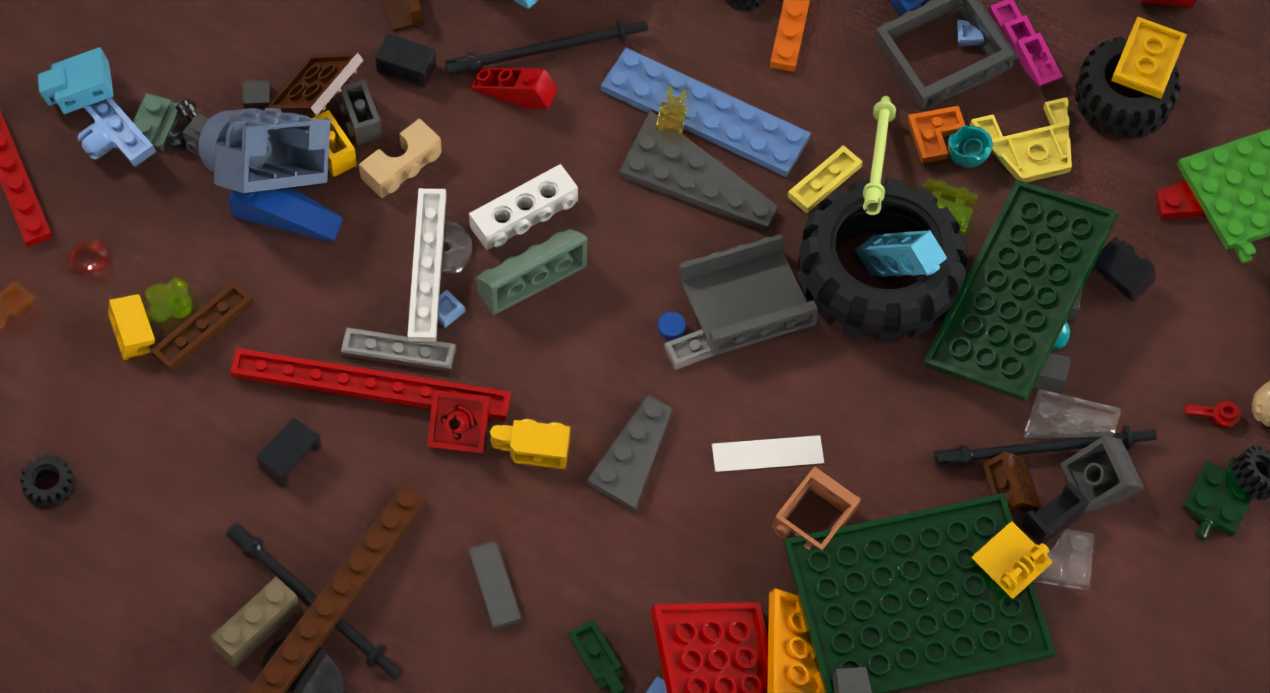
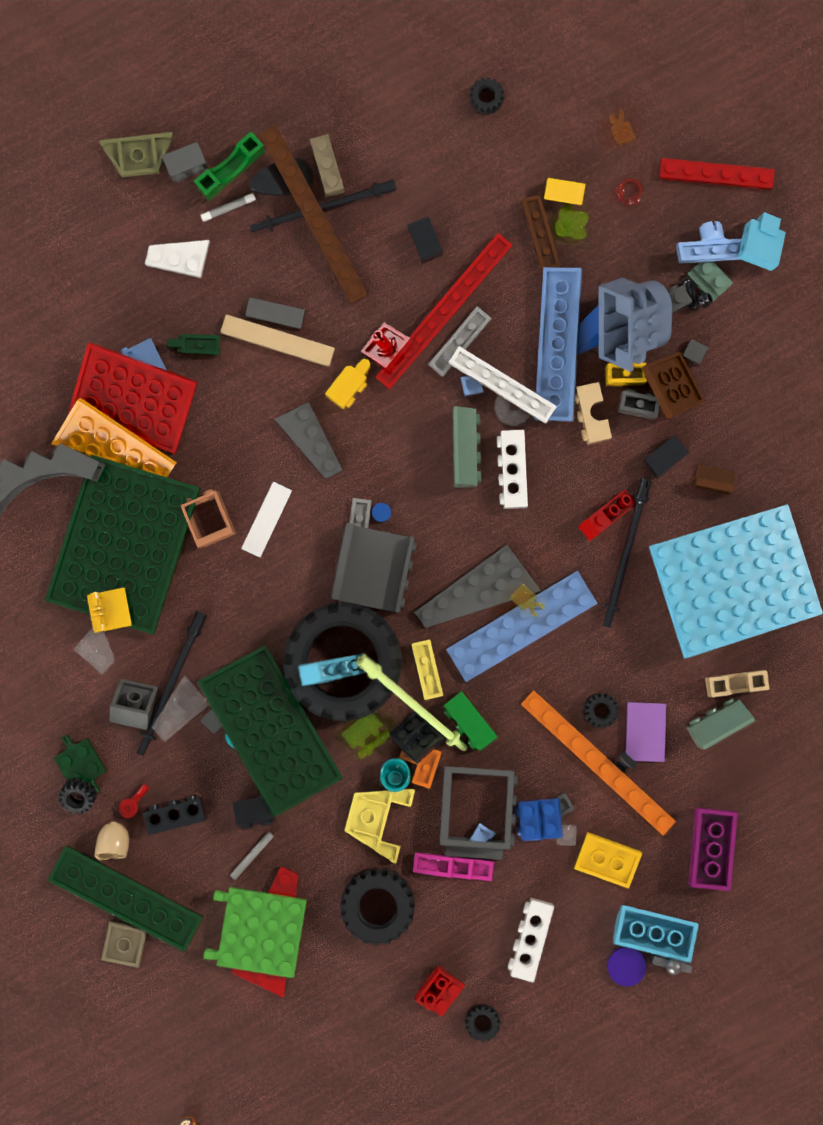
camera: 125 degrees right, 25 degrees up
(328, 235) = (559, 340): none -> medium blue plate
(529, 563) = (277, 340): none -> tan tile
(853, 105) = (469, 721): none -> green brick
(911, 146) = (416, 737): none -> black slope
(1009, 475) = (161, 648): reddish brown panel -> none
(1055, 515) = (125, 658): black panel -> none
(1149, 57) = (382, 928): yellow tile -> none
(1173, 252) = (251, 856): none -> light grey bar
(1192, 341) = (169, 823): none -> black brick

